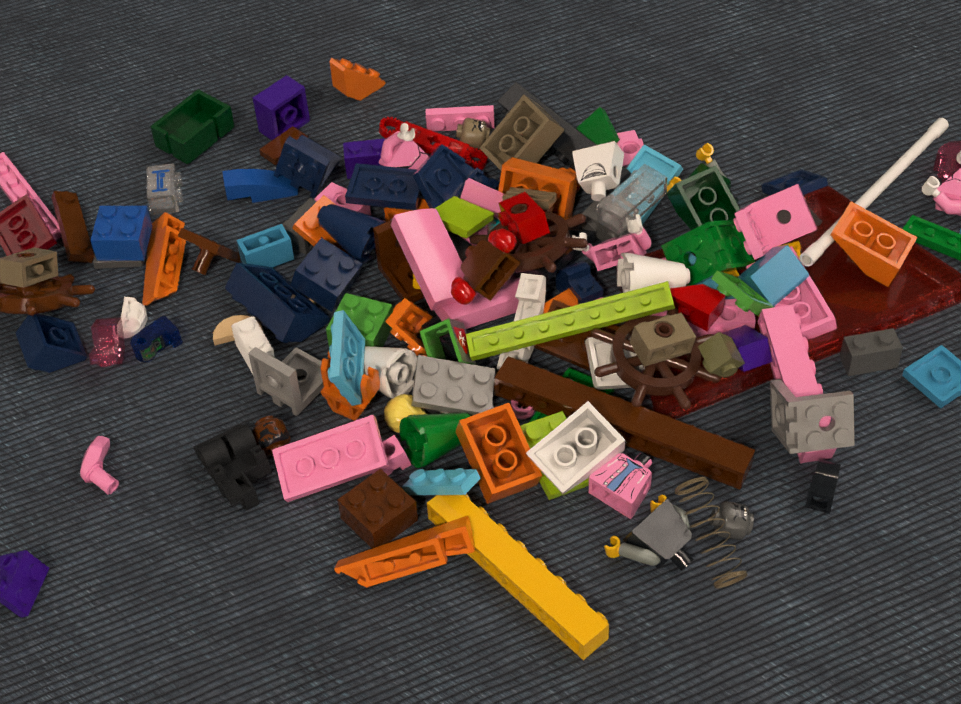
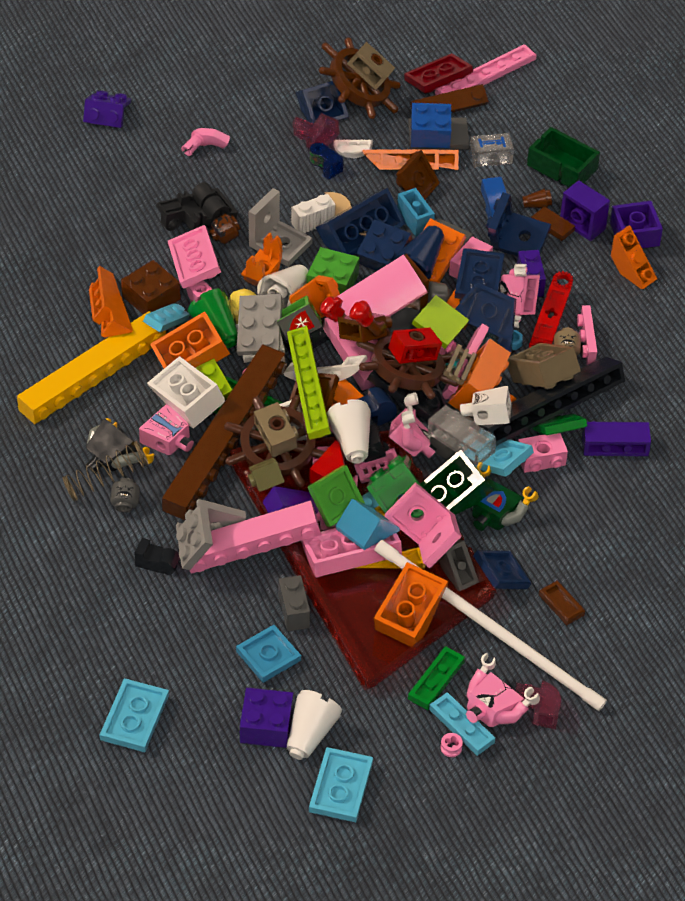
camera: 85 degrees right, 0 degrees up
(248, 151) = (538, 199): none -> reddish brown cone
(307, 69) = (641, 218): none -> dark purple brick
(346, 357) = (275, 246): medium azure plate -> none
(604, 94) = (616, 439): none -> dark purple brick
(819, 150) = (561, 602): none -> reddish brown tile

